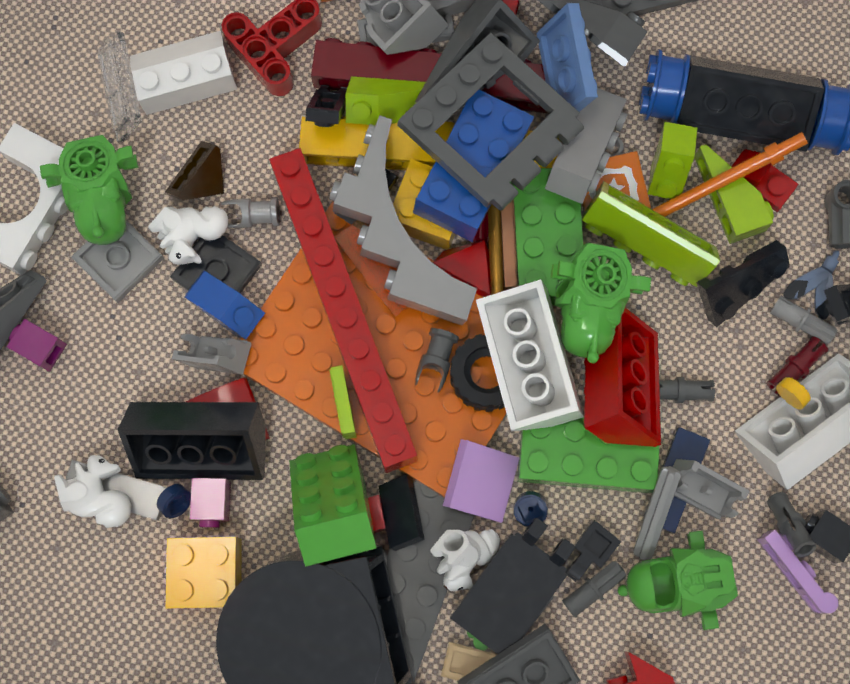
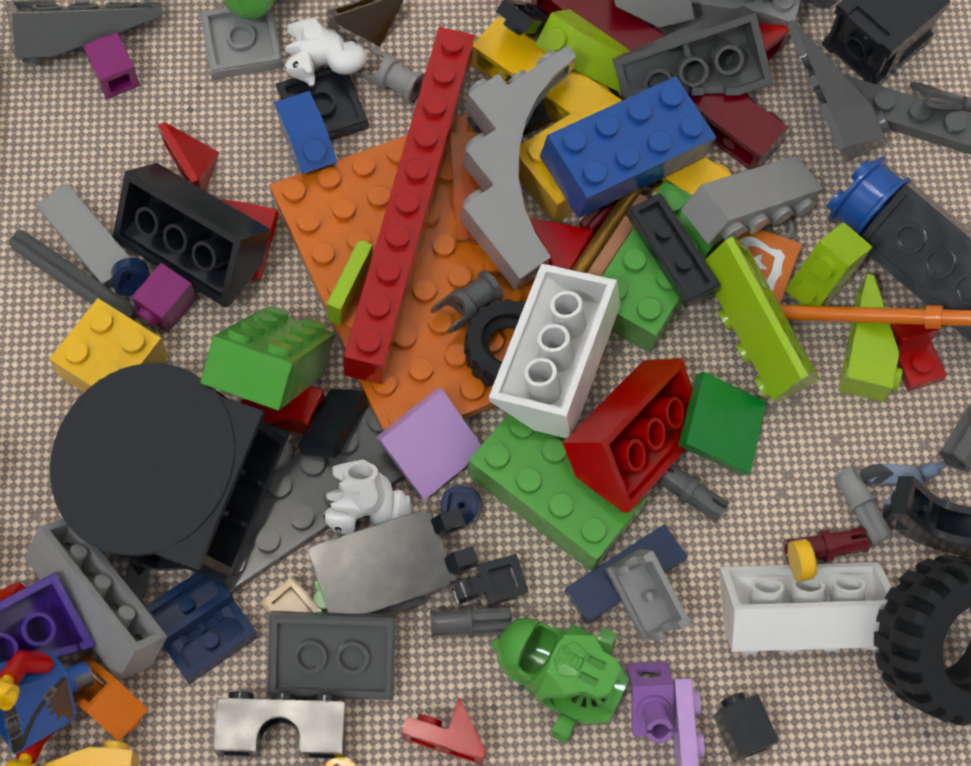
camera: 25 degrees right, 10 degrees down
(86, 495) = (55, 219): white animal -> none
(130, 529) = (67, 273): none -> dark grey axle
(149, 376) = (191, 156): none -> red slope
(214, 354) = (263, 172): light grey hinge -> none
(460, 85) = (669, 164): dark grey hinge -> none
(555, 221) = (673, 250): none -> black tile
(567, 57) = (782, 112): medium blue plate -> none
(586, 298) = (655, 331): bright green helmet -> none
(657, 512) = (583, 582): light grey axle -> none
(671, 326) = (722, 424): none -> green tile
(738, 285) = (817, 426): black wing -> none
(756, 561) = (652, 701): none -> medium lavender bracket
(798, 538) = (710, 699): dark grey pin -> none

